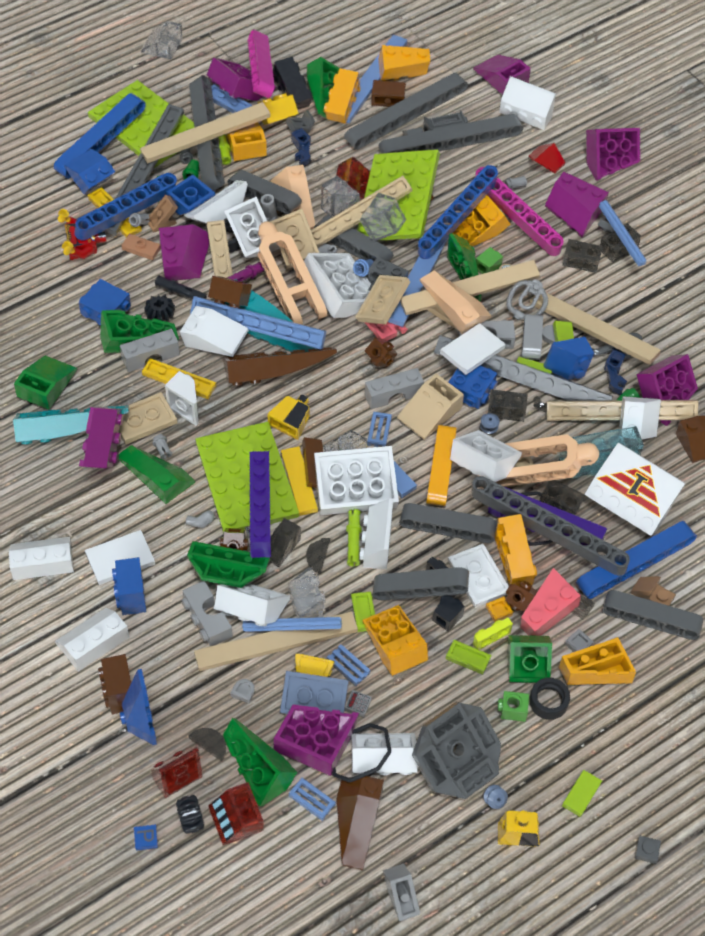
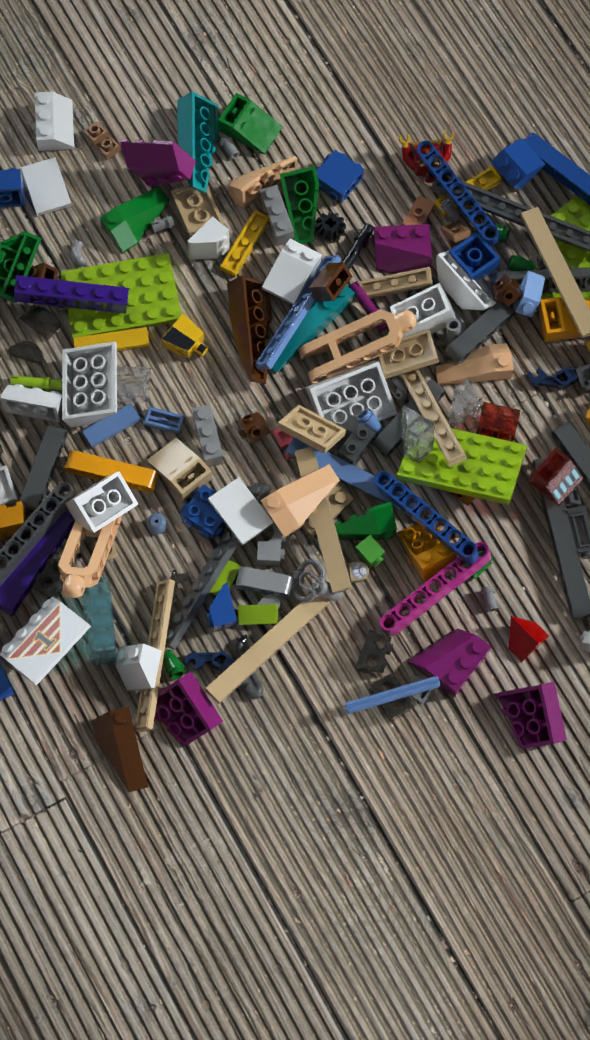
camera: 95 degrees right, 15 degrees up
(62, 511) = (101, 140): none -> medium nougat slope
(69, 397) = (227, 144): none -> light grey pin
(115, 366) = (248, 186): none -> light nougat wedge
(226, 168) = (506, 290): none -> reddish brown brick
(227, 157) = (531, 293): none -> light blue slope
(310, 447) = (136, 355): reddish brown tile -> none
(402, 132) = (556, 477): none -> clear red slope
(508, 405) = (175, 542): clear smoke brick -> none

